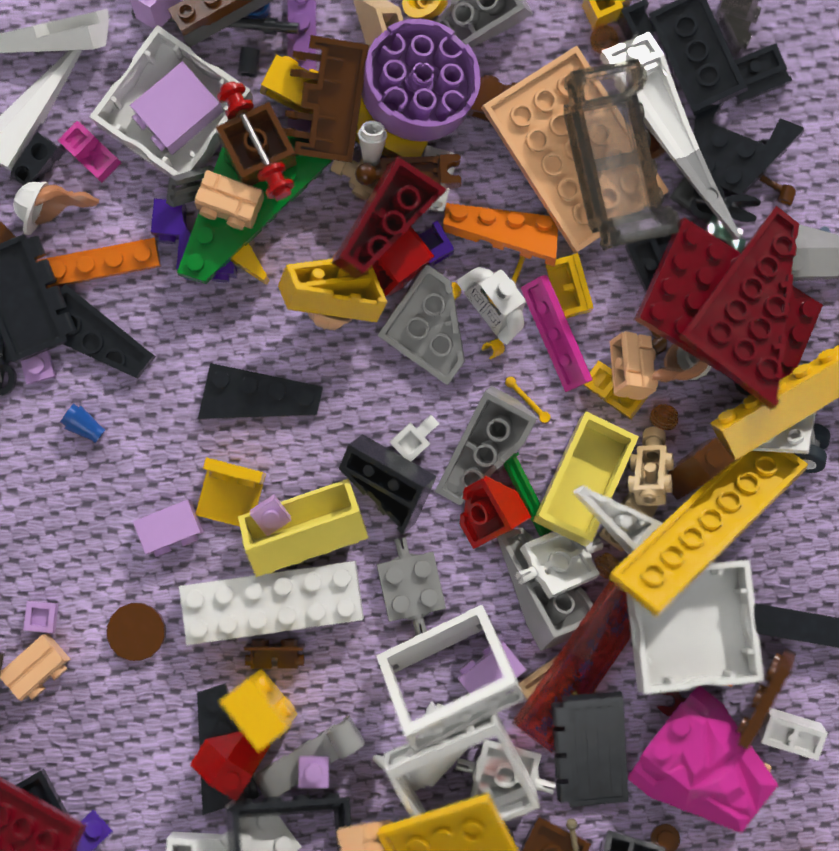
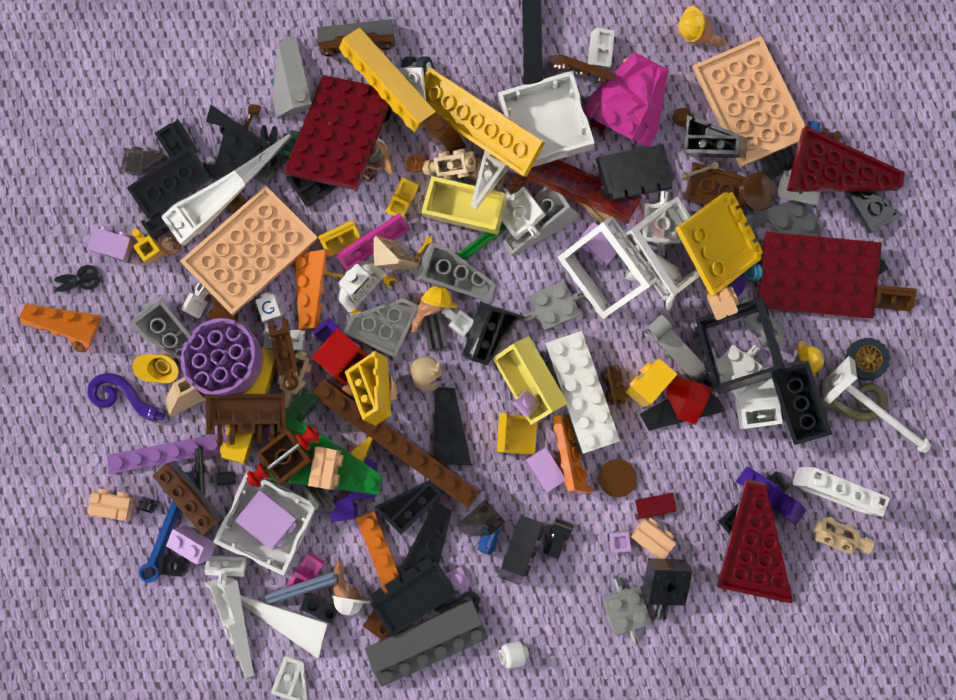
camera: 95 degrees left, 0 degrees up
(58, 468) = (520, 550): none -> black wedge
(68, 141) = (301, 588): none -> sand blue axle
(69, 528) = (558, 536): none -> black piece
(84, 680) = (655, 505): none -> dark red tile
(112, 419) = (481, 521): none -> clear smoke slope
(121, 38) = (225, 566): none -> white plate
(155, 316) = (409, 506): none -> black wedge
(181, 567) = (570, 456): none -> orange wing
(236, 324) = (399, 445): none -> reddish brown brick
(314, 771) = (683, 343): lavender plate -> none
(330, 186) = (303, 405): none -> clear green brick
(346, 373) = (424, 372): none -> tan helmet
(372, 141) = (268, 382): white cone -> none
(389, 212) = (318, 361): dark red wedge -> none
(418, 400) = (437, 346): none -> dark grey tile
(447, 404) = (432, 302): none -> piece
(485, 164) = (268, 307): none -> white brick
(490, 511) = (496, 263): red slope -> none
(511, 60) = (195, 303): none -> white plate
(530, 357) = (392, 255): none -> tan slope
(615, 155) = (253, 222): windscreen -> none
(633, 365) = (385, 188): light nougat brick -> none
(746, 313) = (340, 120): dark red wing -> none

